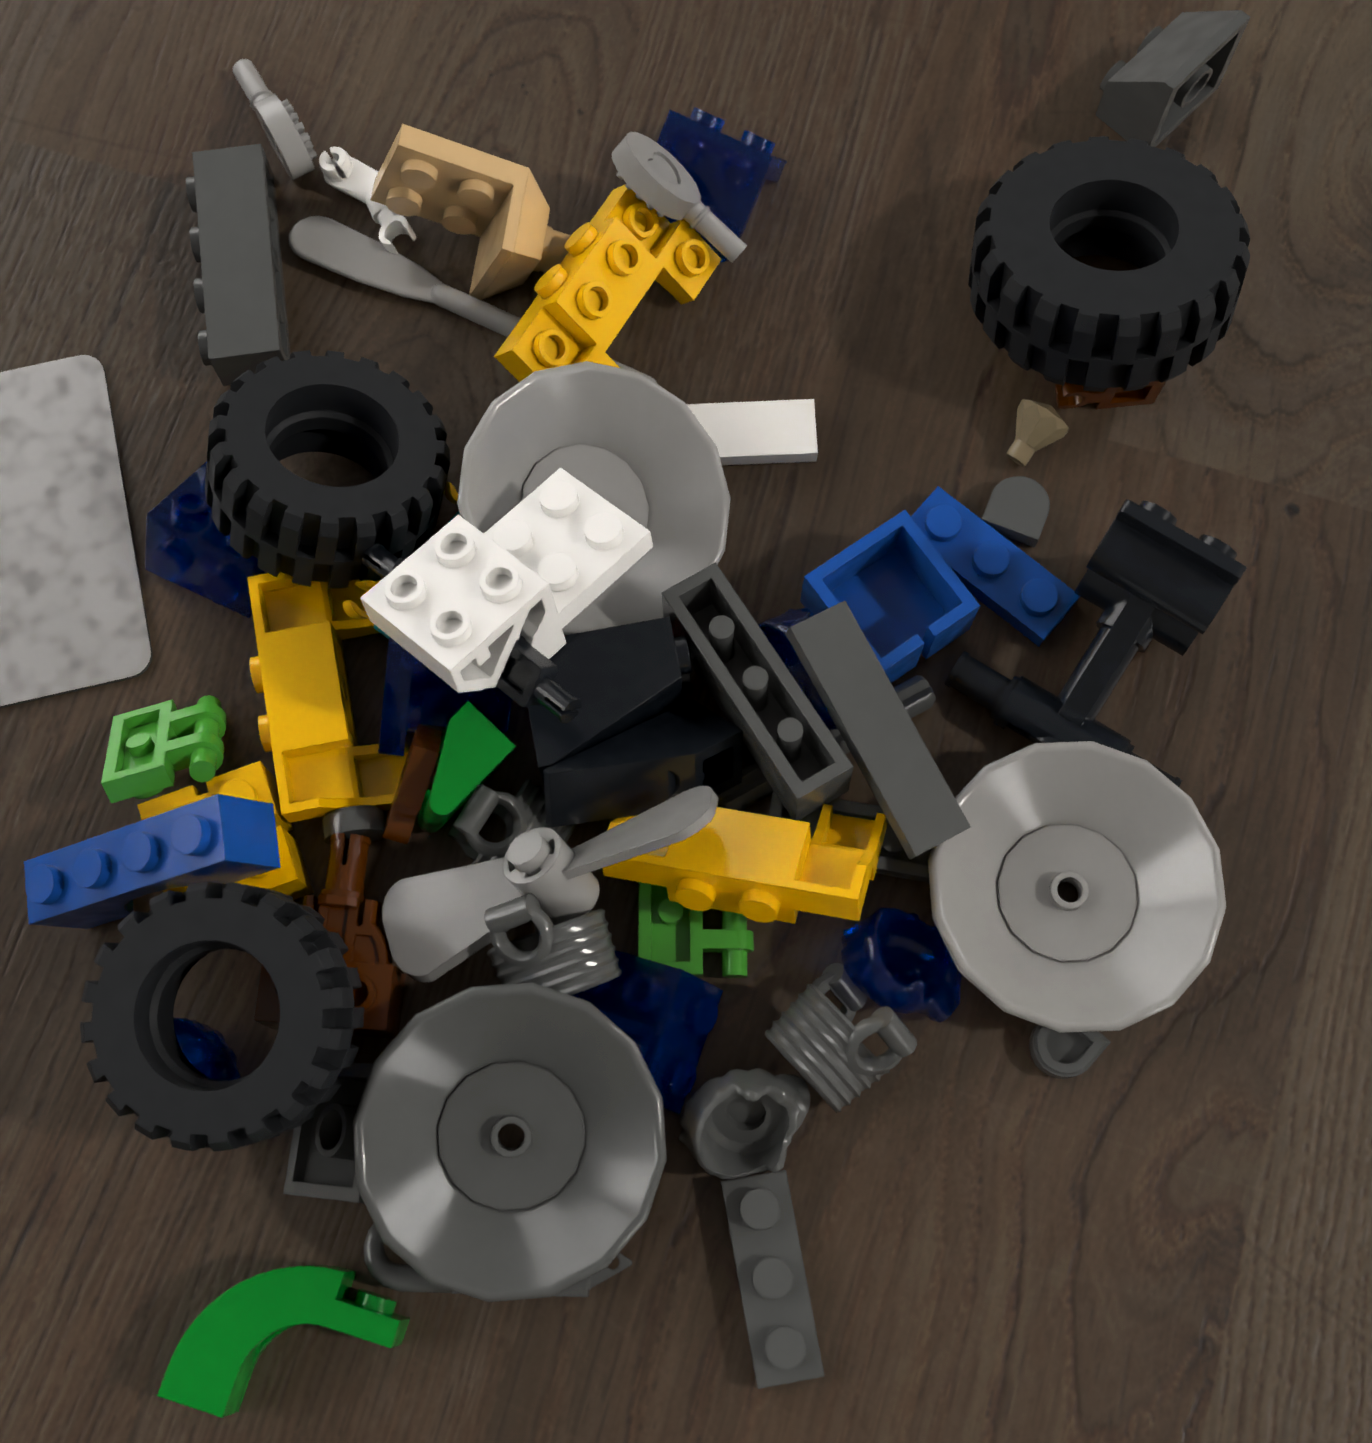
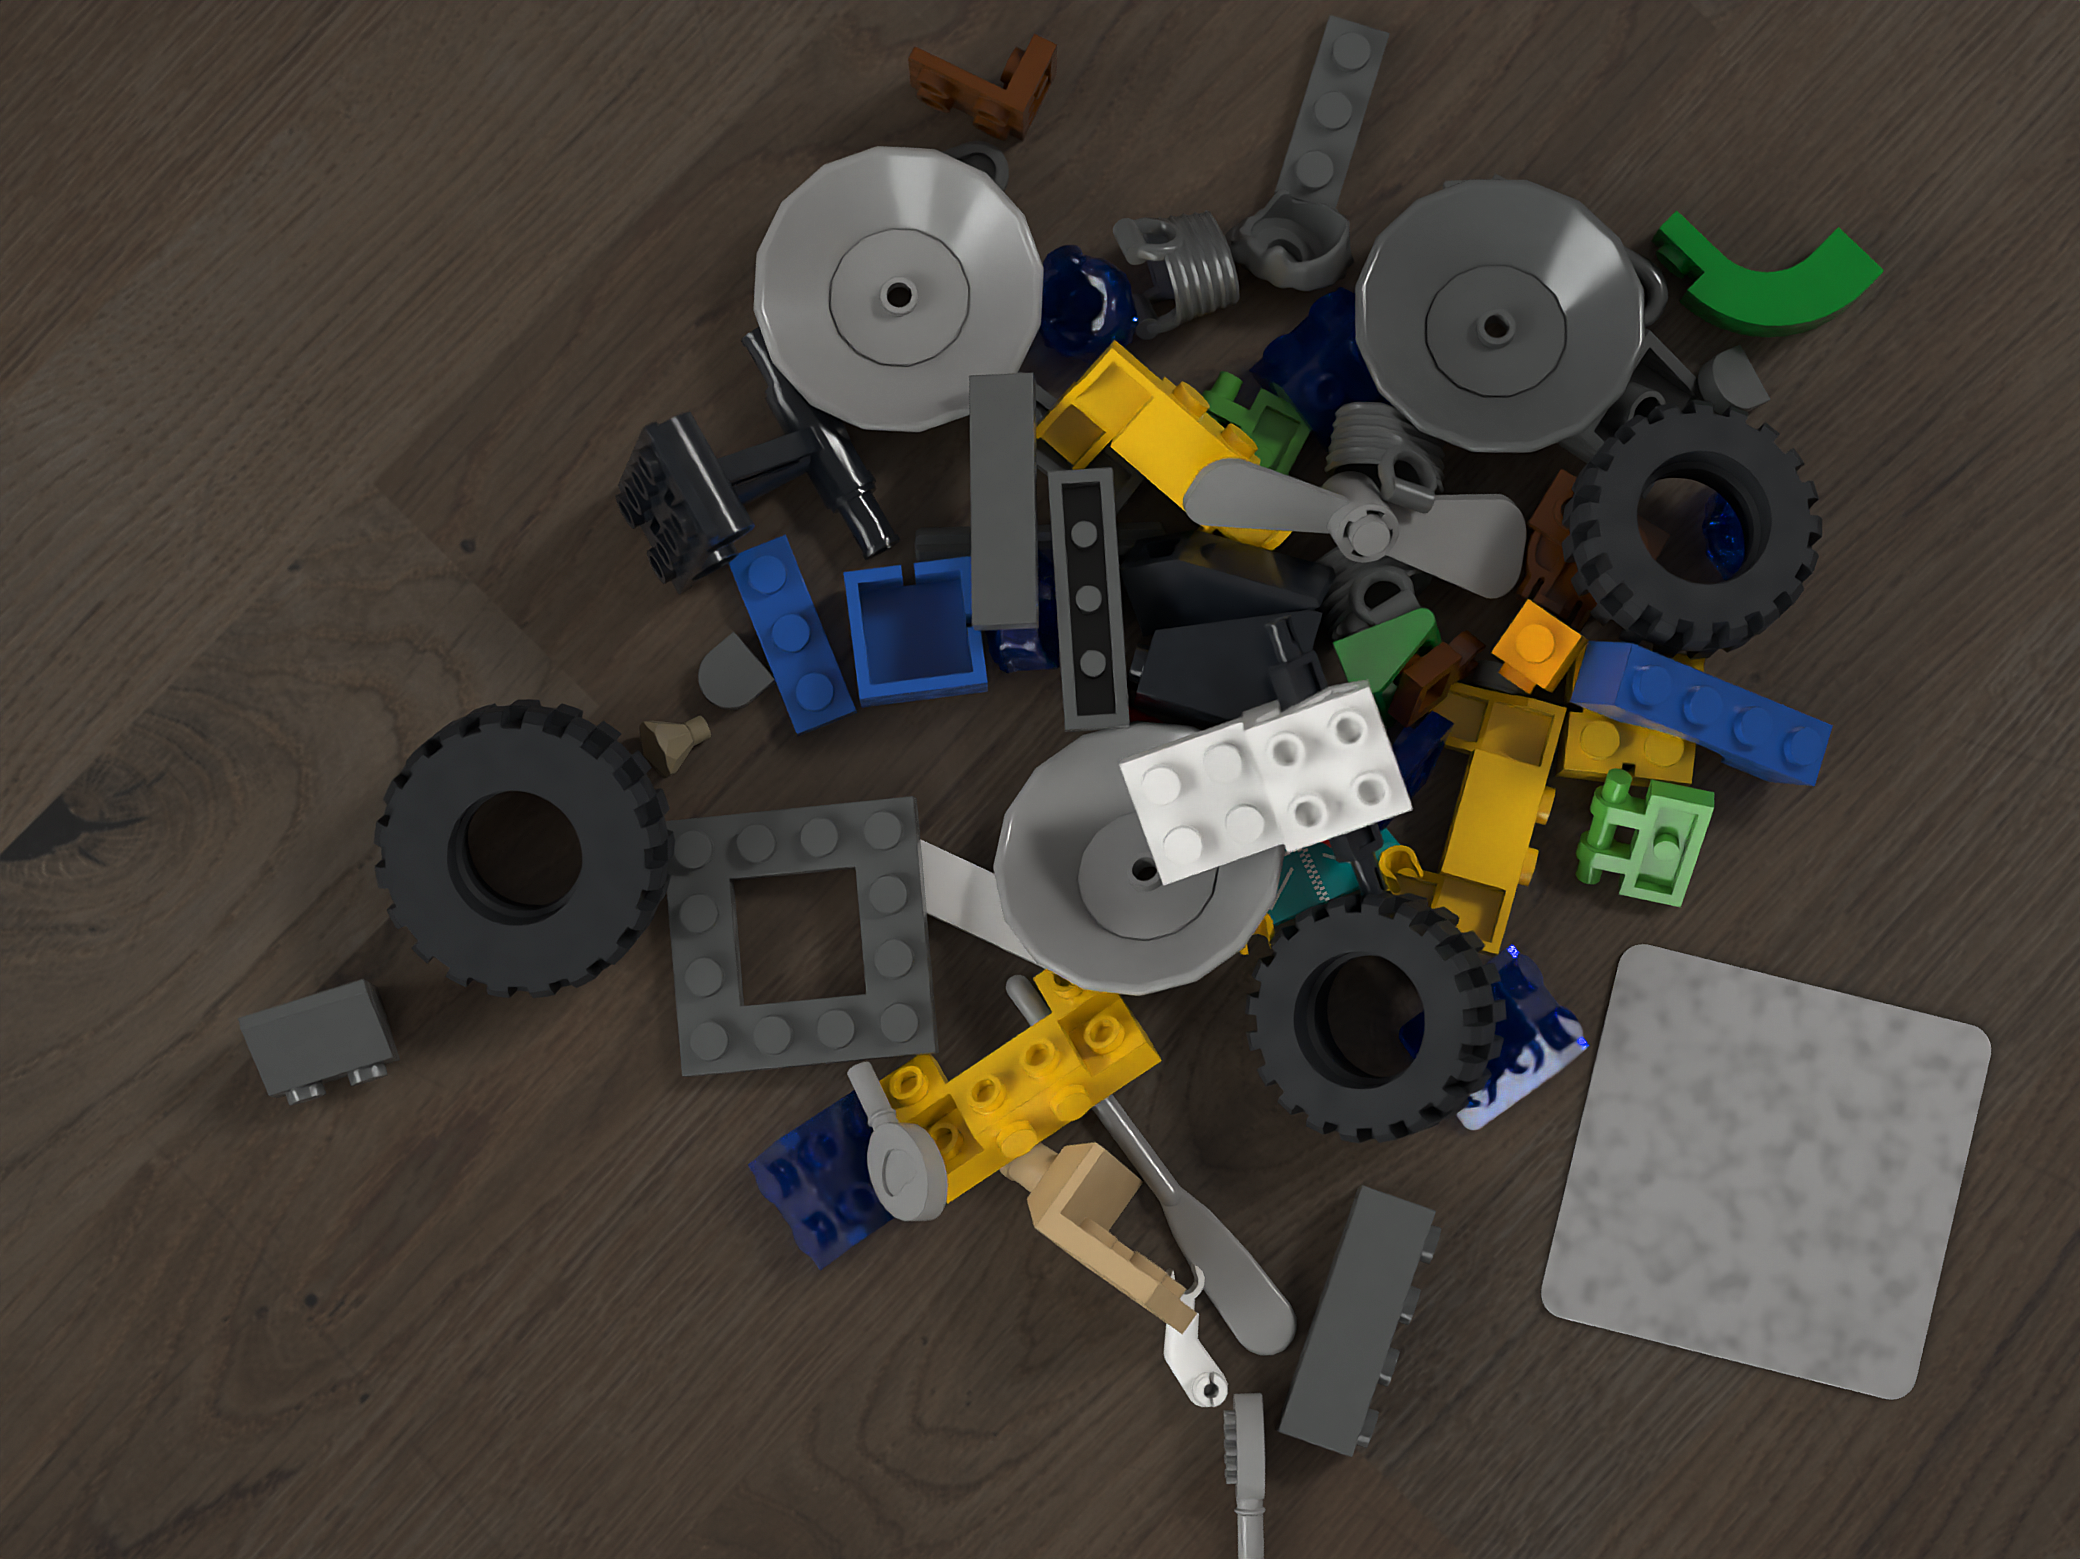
camera: 160 degrees left, 10 degrees up
(268, 1210) = (1731, 381): none -> dark grey tile
(325, 842) = (1537, 649): none -> light orange brick
(825, 430) = (899, 1001): none -> dark grey plate
(1078, 1144) = (995, 109): none -> reddish brown bracket

